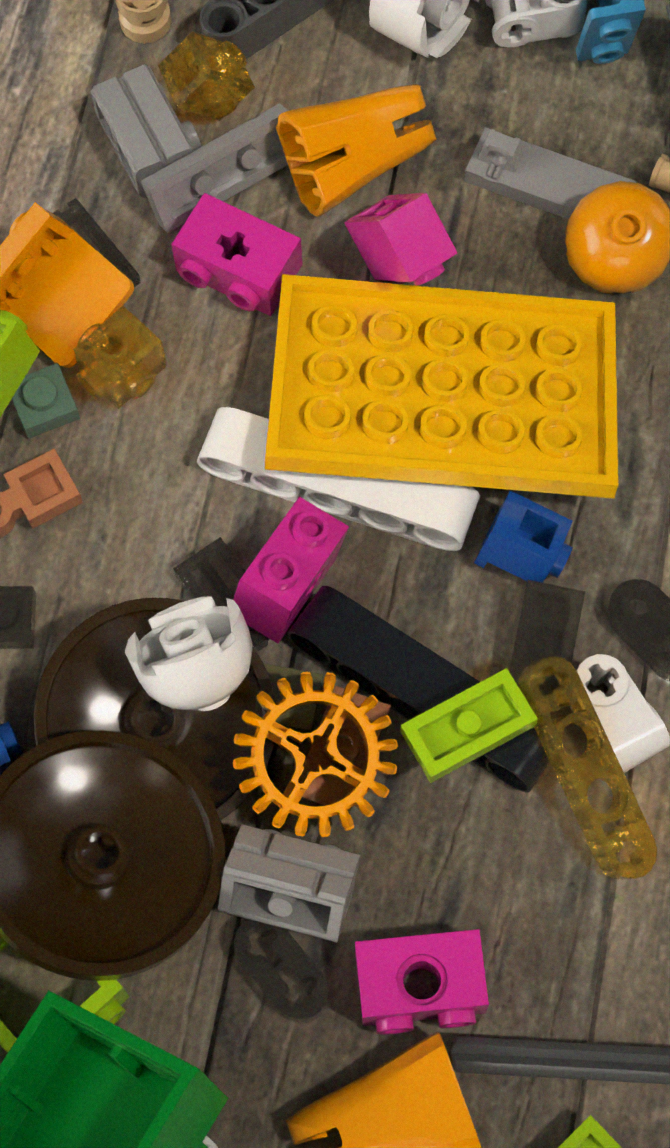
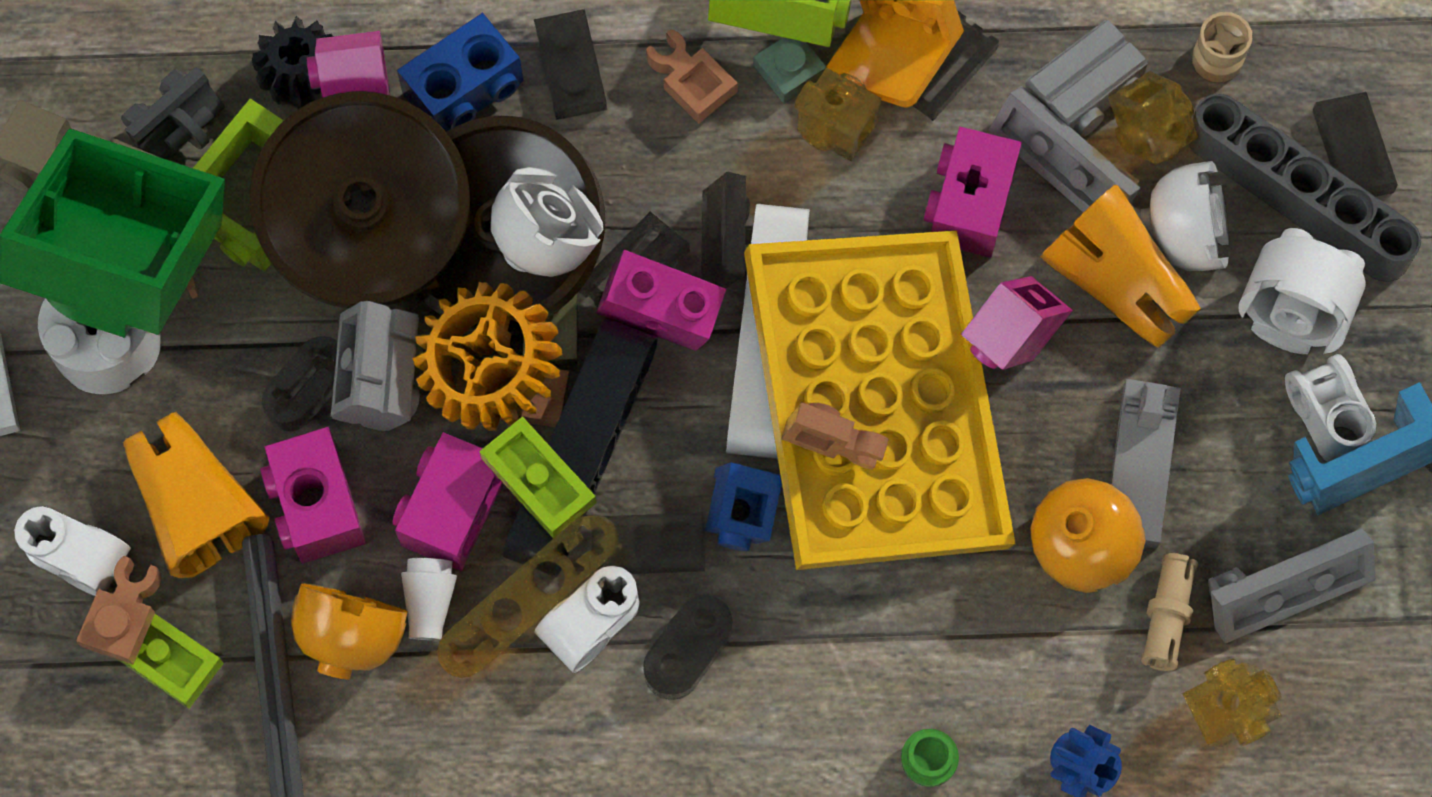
camera: 75 degrees right, 0 degrees up
(219, 498) = (723, 230): none -> clear smoke plate
(319, 67) = (1188, 218): none -> white cylinder
(458, 835) = (448, 502): none -> dark pink brick
(490, 426) = (825, 432): none -> nougat plate
(556, 878) = (427, 596): none -> white cone
(586, 966) = (345, 630): none -> light orange cylinder

